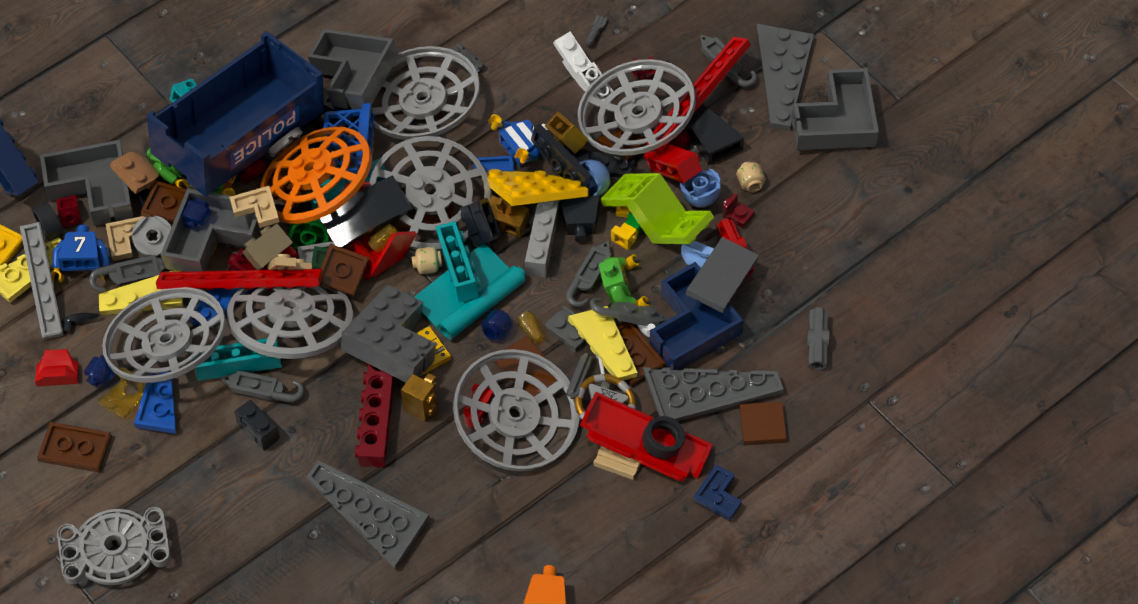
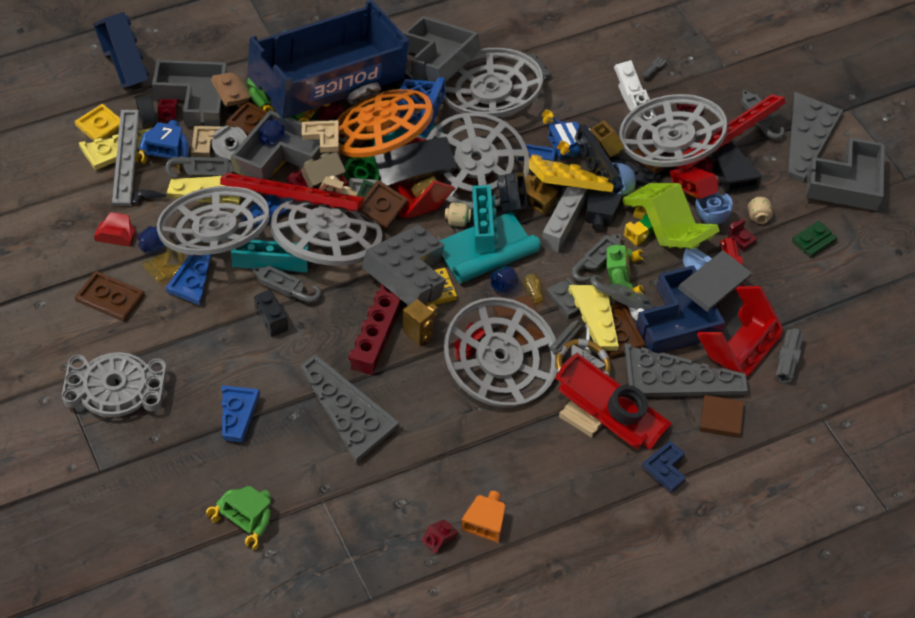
camera: 10 degrees right, 5 degrees down
(254, 544) = (238, 410): none -> blue wing
(776, 328) = (753, 340): none -> red windscreen
(815, 196) = (814, 239): none -> dark green plate

